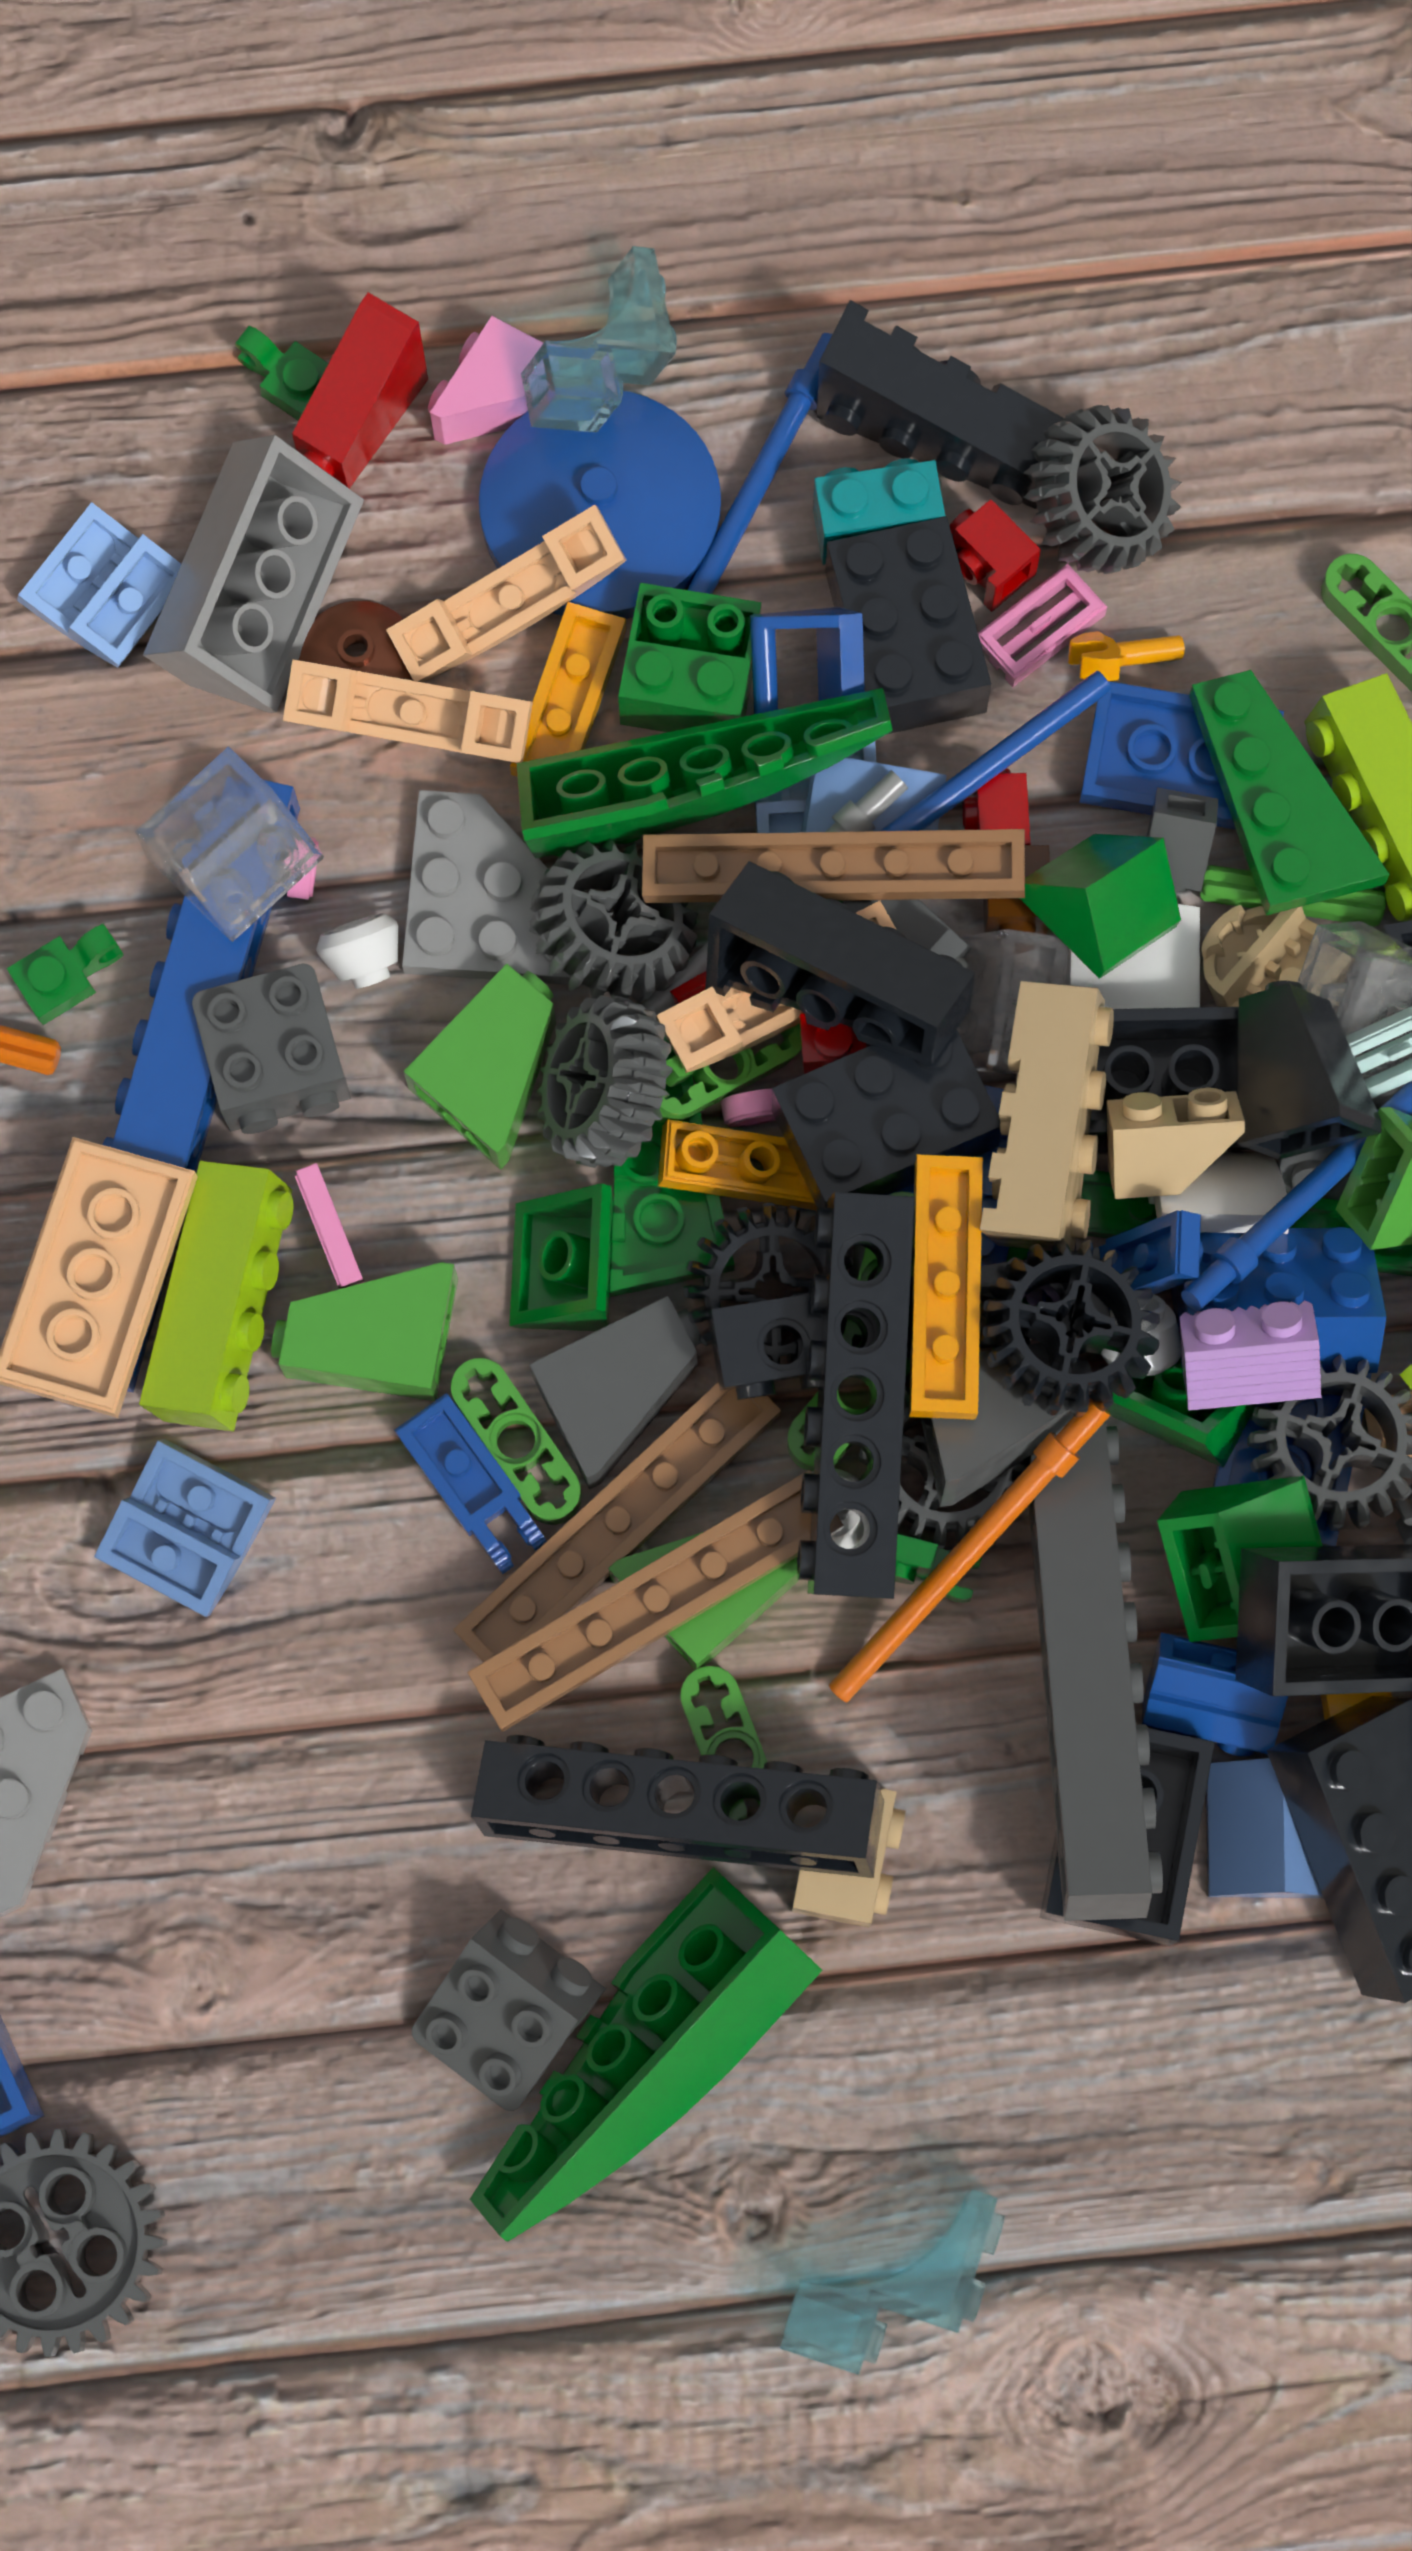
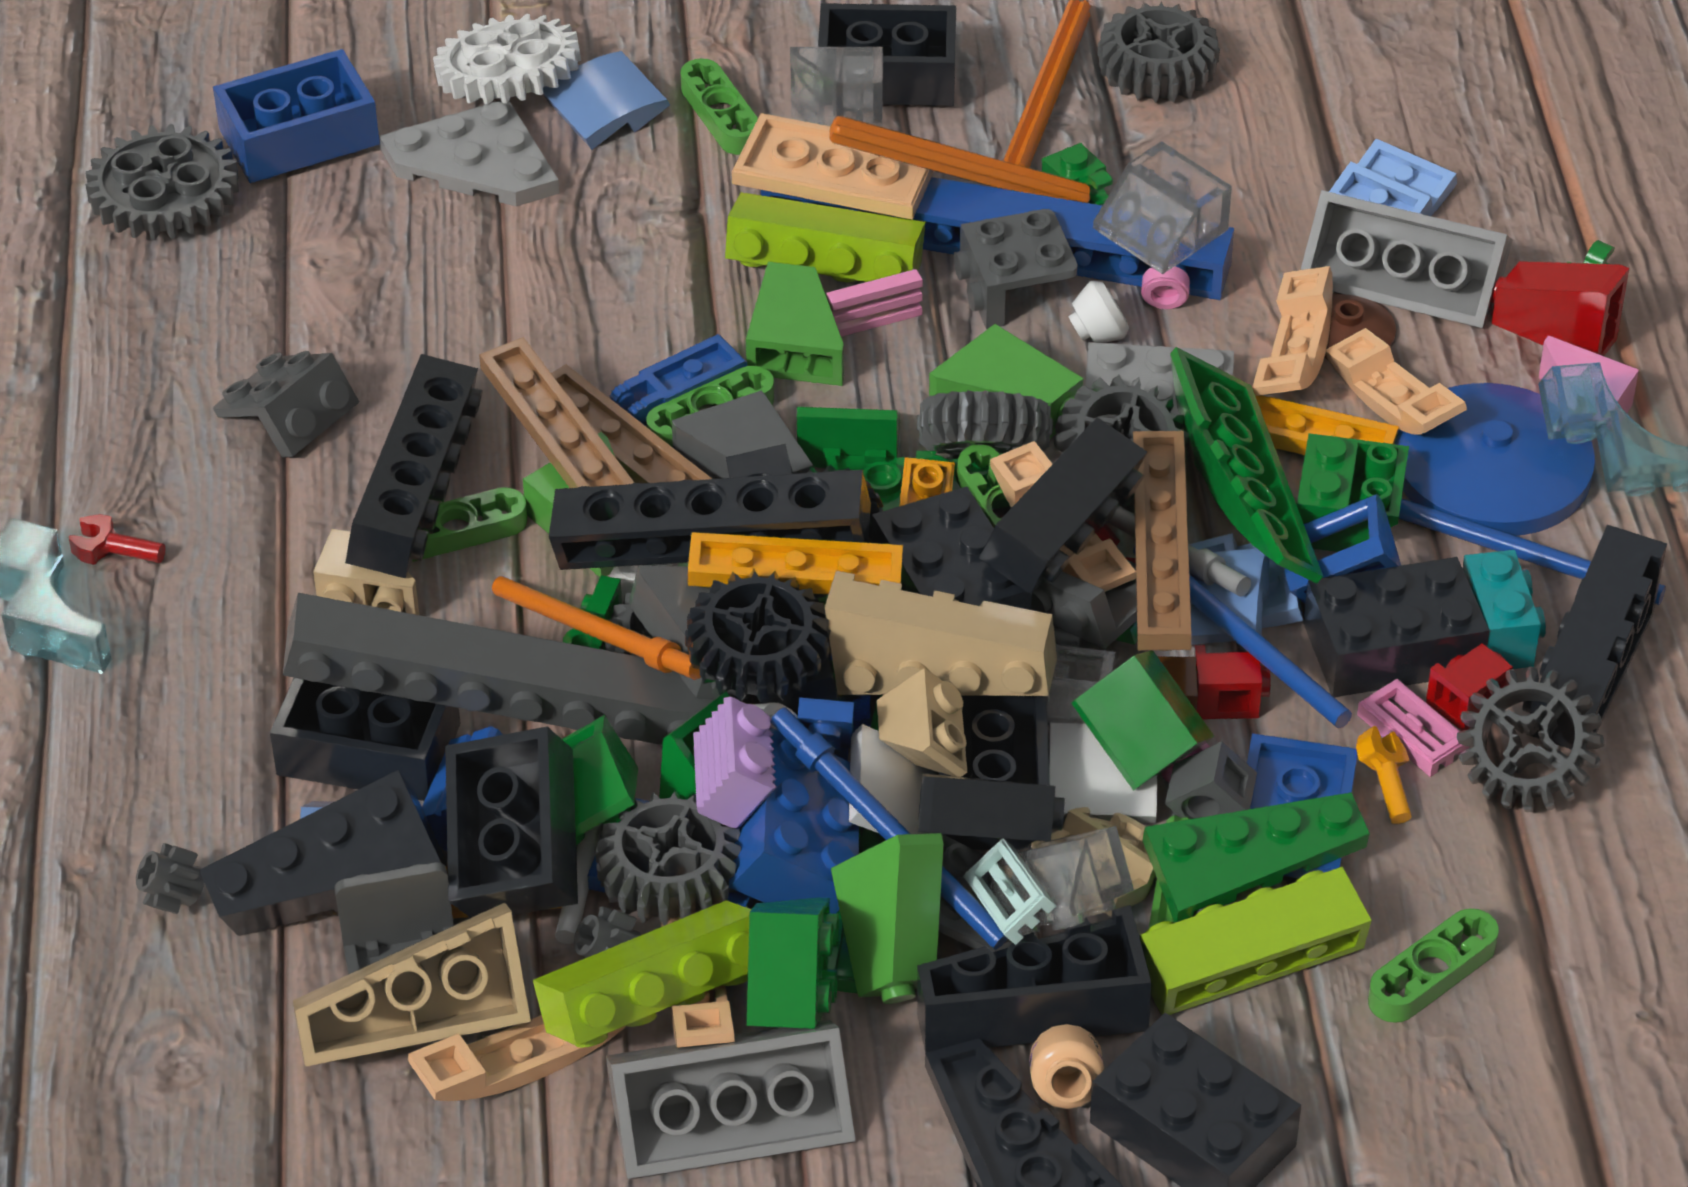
camera: 90 degrees right, 30 degrees down
(109, 1113) = (953, 160): none -> orange axle
(185, 1527) = (657, 241): medium blue slope -> none
(670, 2034) = (238, 472): green wedge -> none
(771, 2211) = (105, 540): none -> red bar
(1368, 2051) = (169, 878): none -> dark grey gear

